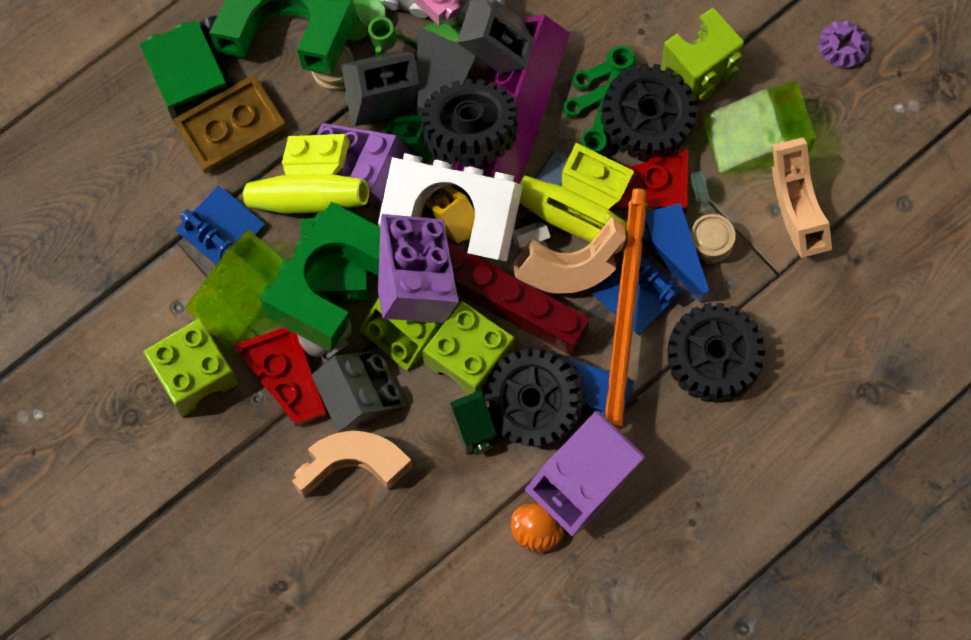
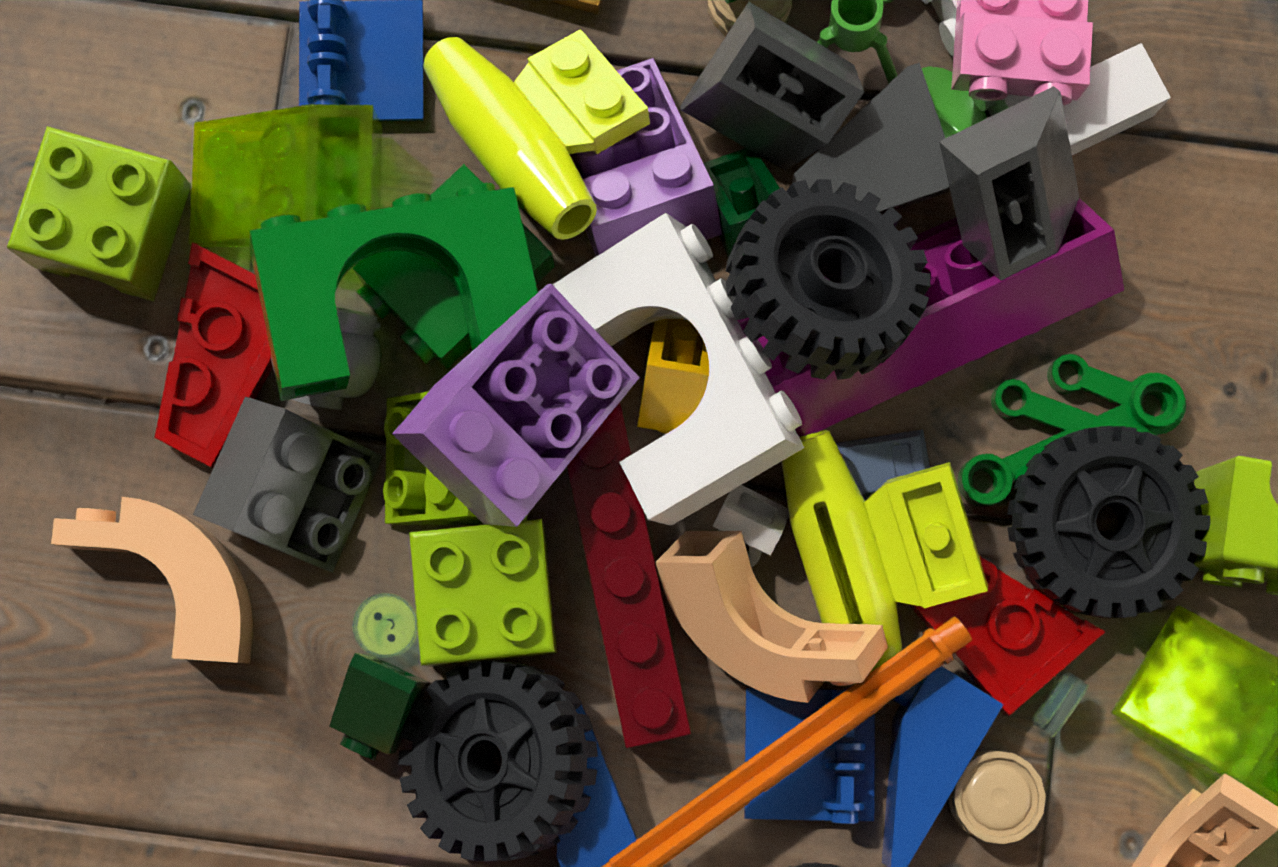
camera: 40 degrees right, 10 degrees up
(440, 402) = (385, 625): none -> clear light blue tile

